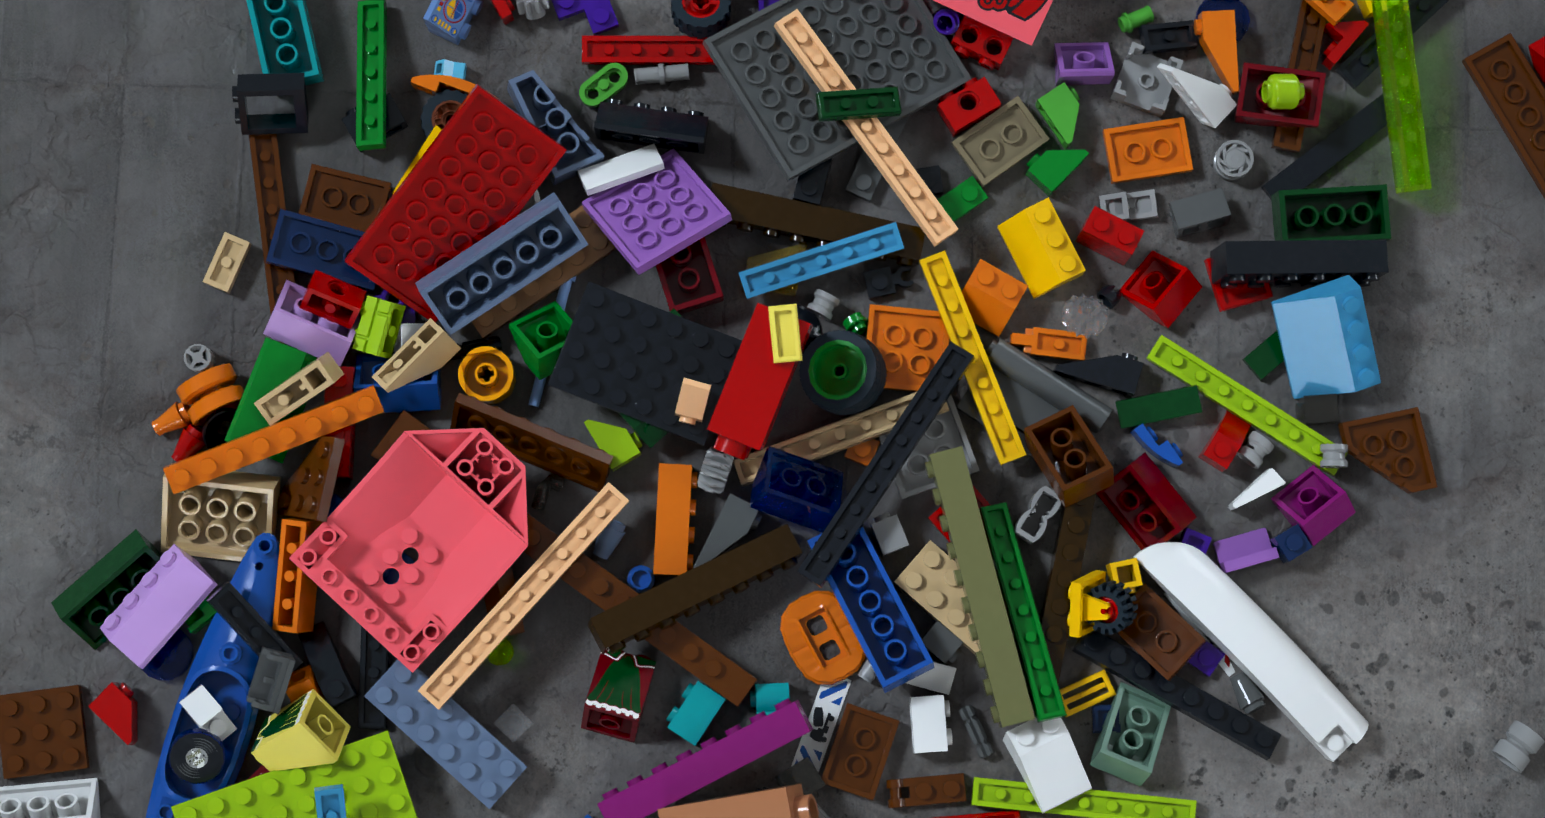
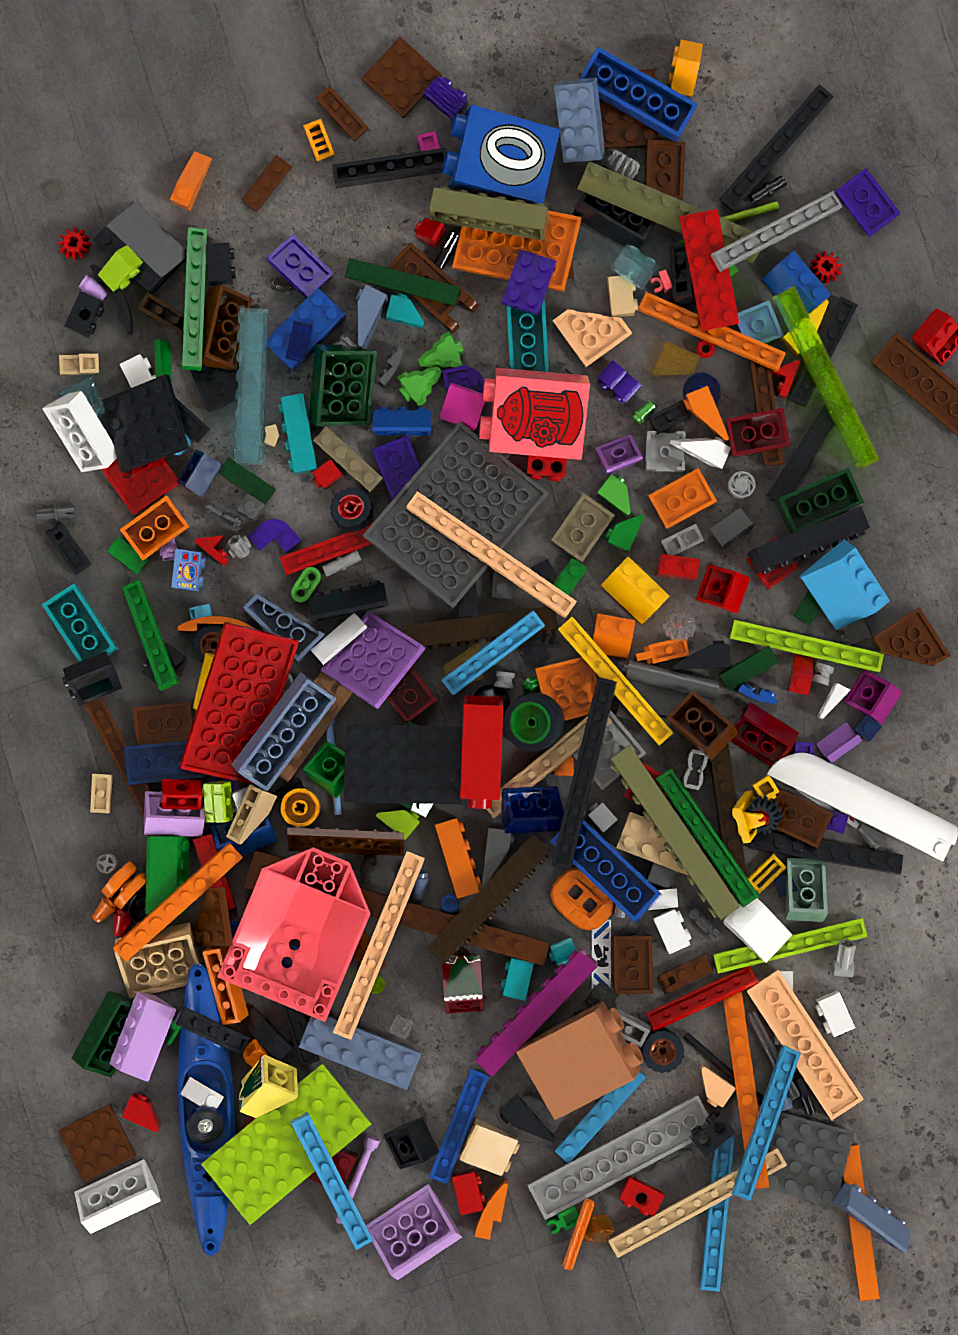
camera: 10 degrees left, 5 degrees up
(172, 658) = (164, 1066): clear blue tile -> none
(270, 680) = (234, 1058): dark grey hinge -> none
(299, 388) = (182, 862): tan slope -> none
(692, 401) = (443, 781): light nougat slope -> none
(715, 471) = (472, 818): light grey gear -> none
(785, 333) = (489, 718): light yellow tile -> none
(858, 104) = (481, 541): dark green tile -> none
(947, 21) = (518, 462): dark purple cone -> none
(959, 119) = (550, 523): red brick -> none
(1109, 296) = (691, 606): black hinge -> none
(1282, 91) = (758, 431): lime head -> none
(1333, 455) = (875, 660): light grey wheel -> none

